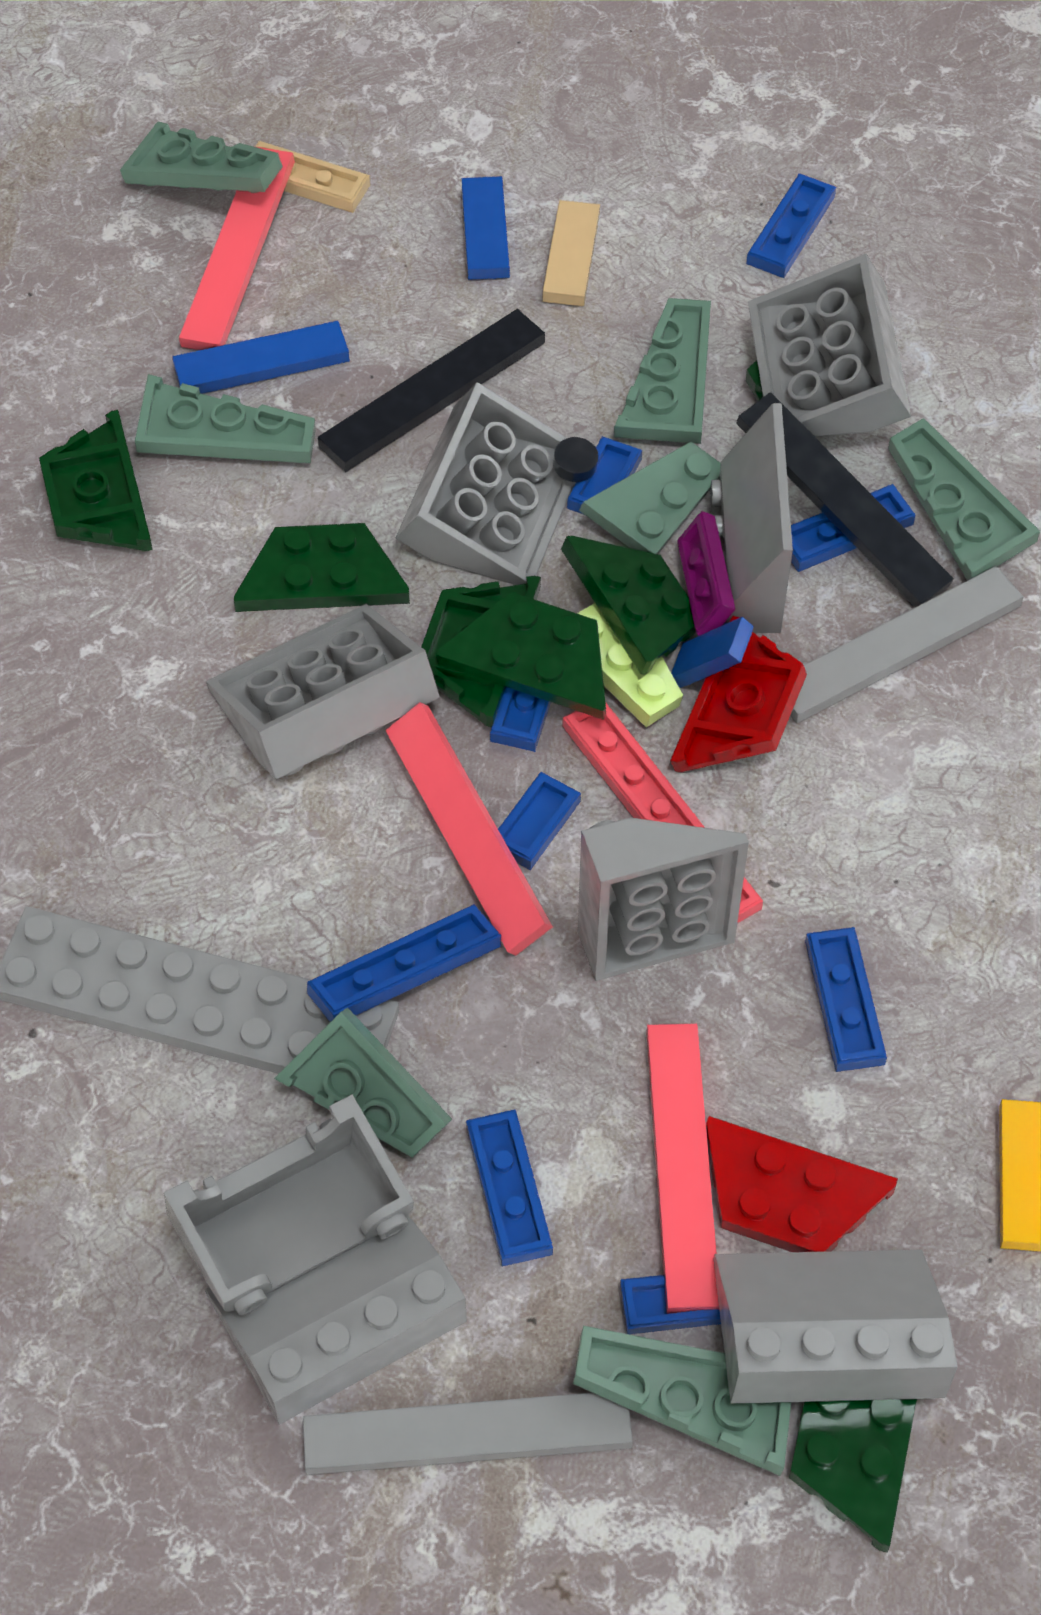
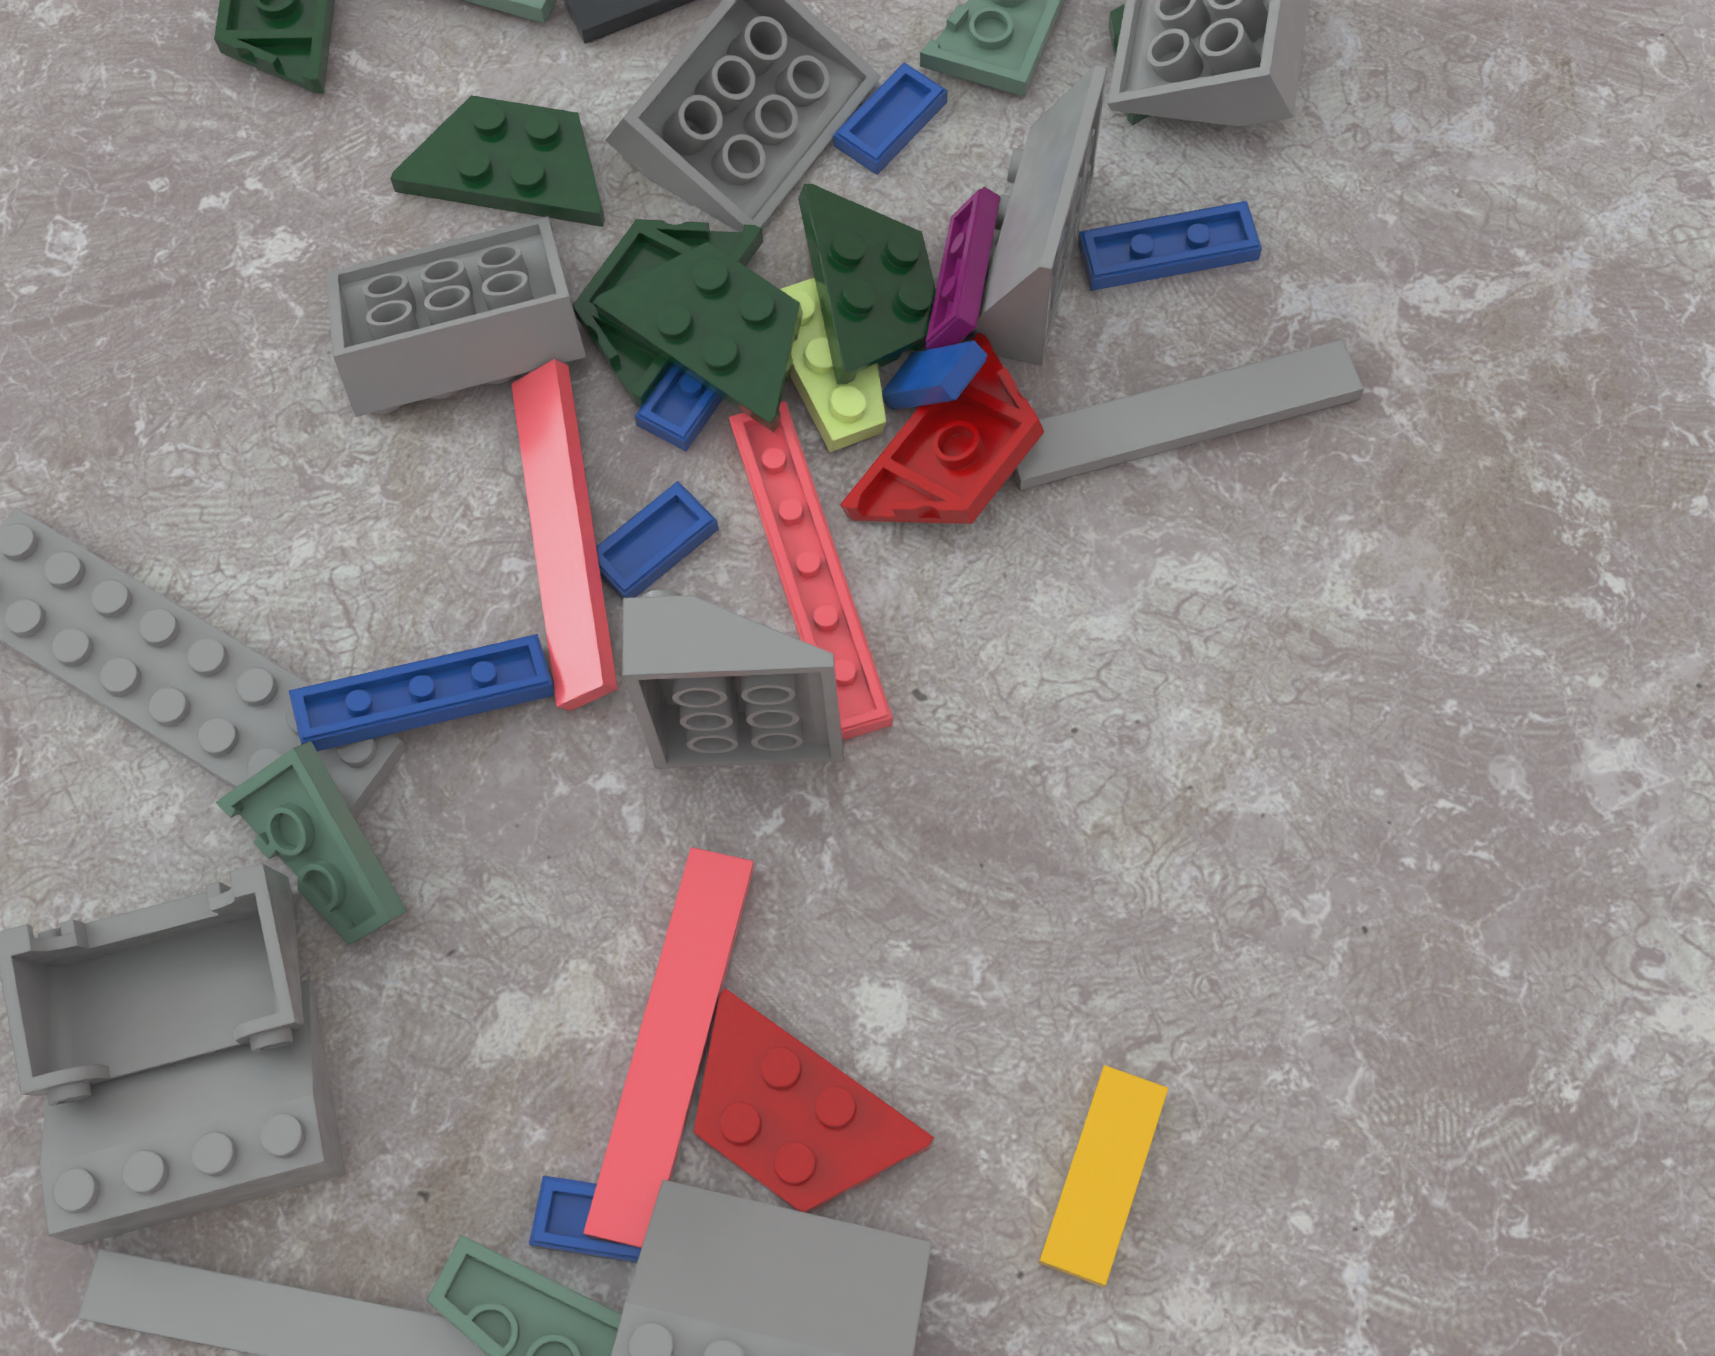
camera: 20 degrees right, 10 degrees up
(509, 1188) = (453, 1015): blue tile -> none
(575, 459) = (856, 85): black tile -> none
(655, 500) = (939, 159): sand green wing -> none
(845, 999) = (953, 874): blue tile -> none
(854, 510) = (1178, 220): black tile -> none
(966, 509) = (1328, 252): sand green wing -> none

